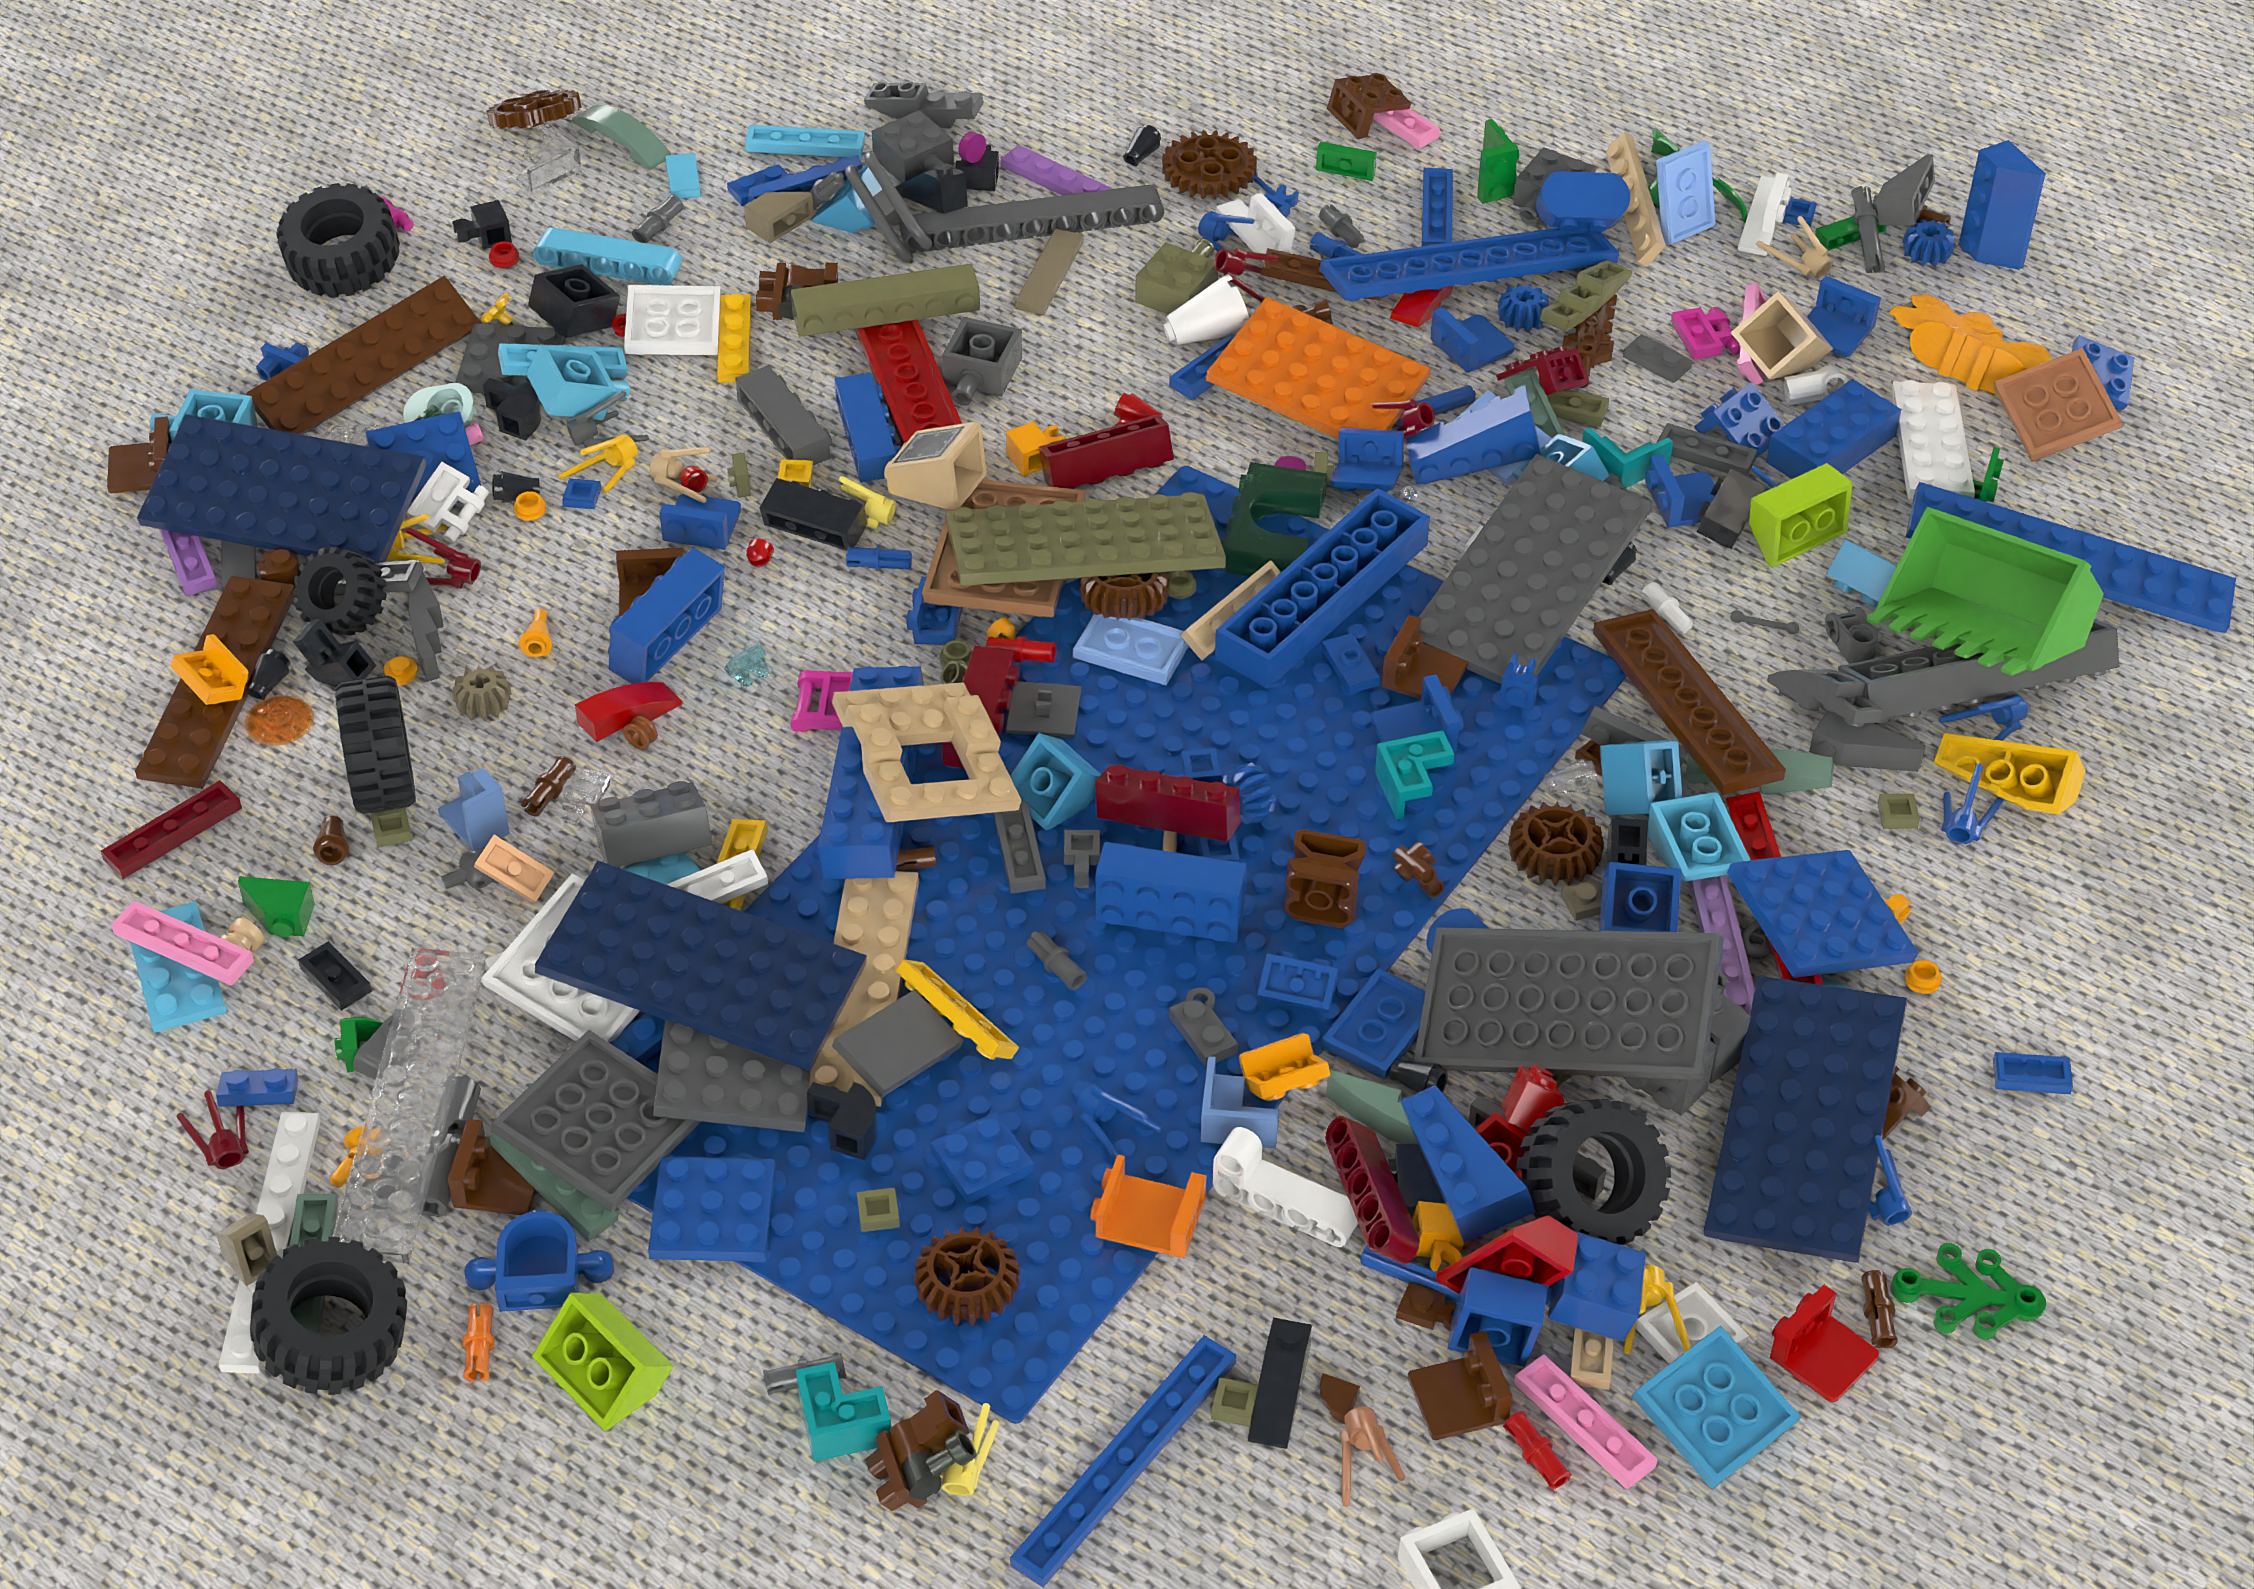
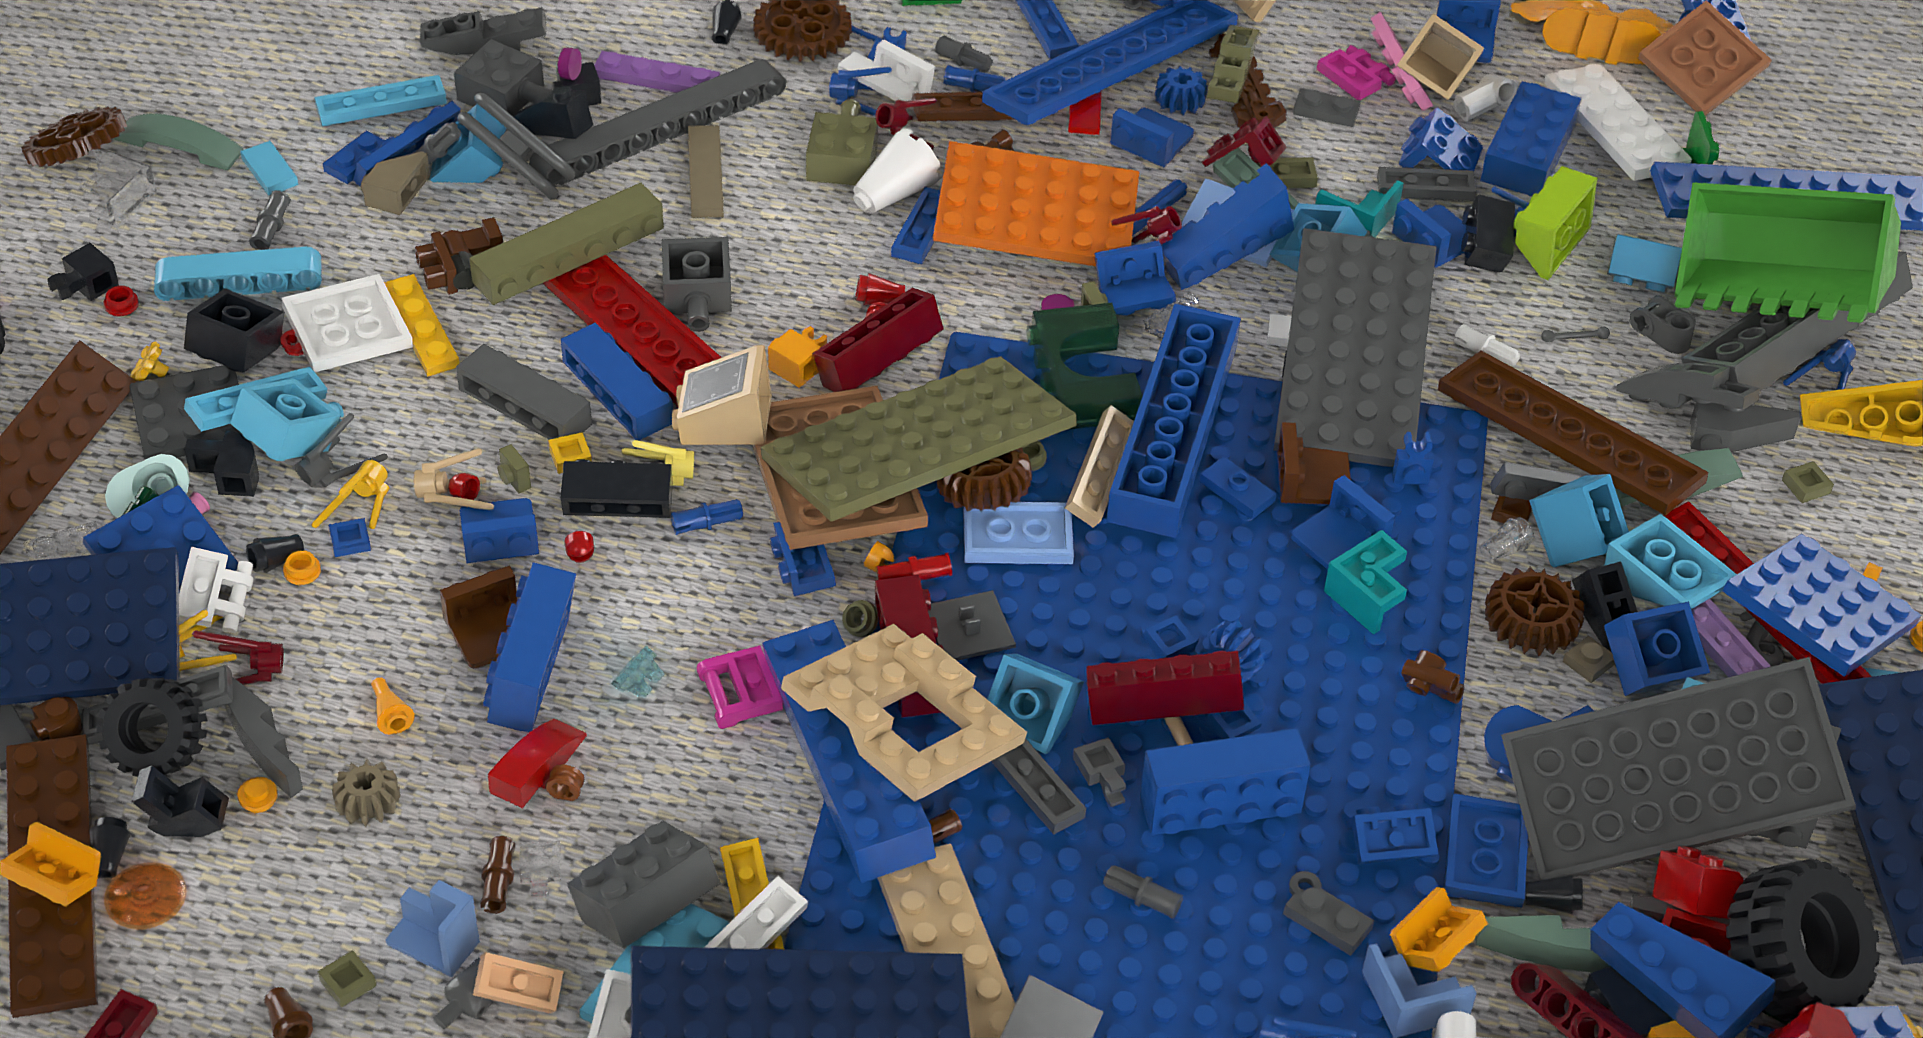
camera: 25 degrees left, 0 degrees up
(375, 744) = (300, 892): black tyre -> none
(950, 1004) = (1094, 988): yellow plate -> none
(955, 651) = (843, 594): olive plate -> none
(1323, 878) = (1364, 718): reddish brown piece -> none
(1963, 824) = (1869, 474): blue plant -> none

